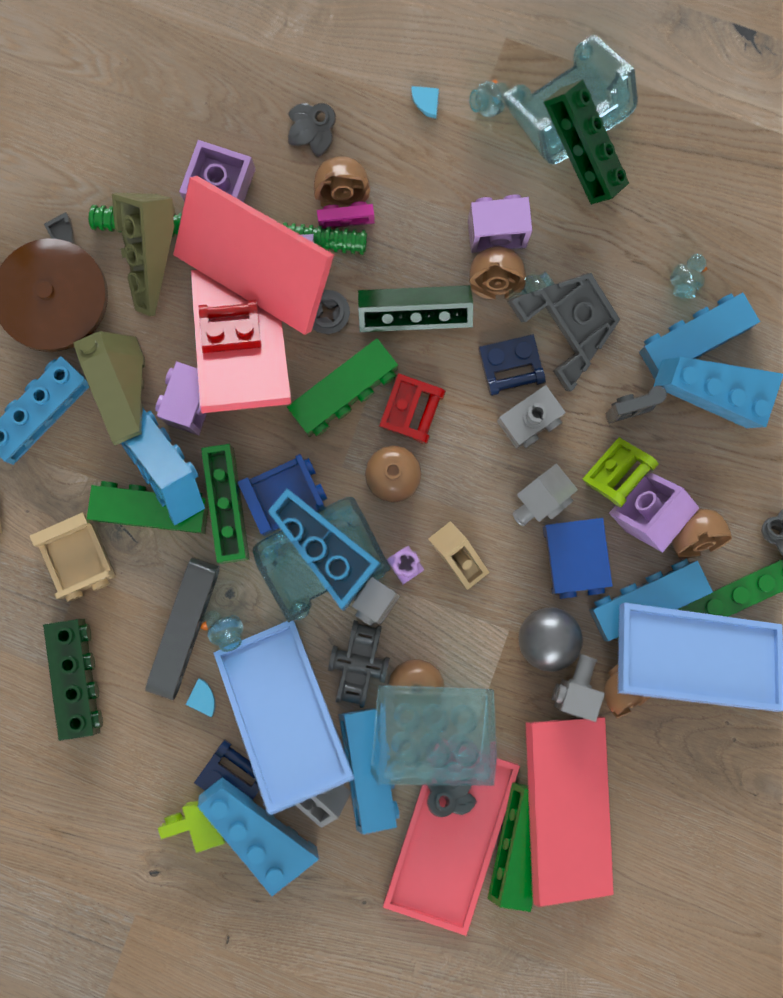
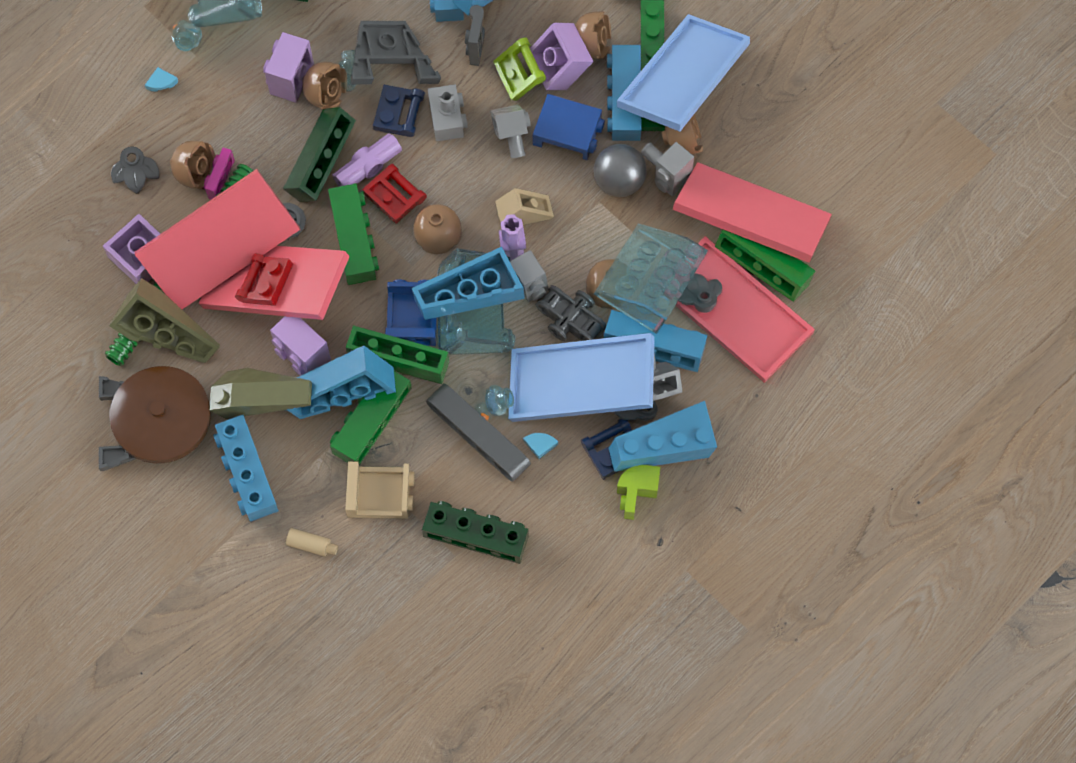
camera: 65 degrees left, 15 degrees down
(433, 362) = (368, 161): none -> lavender piece

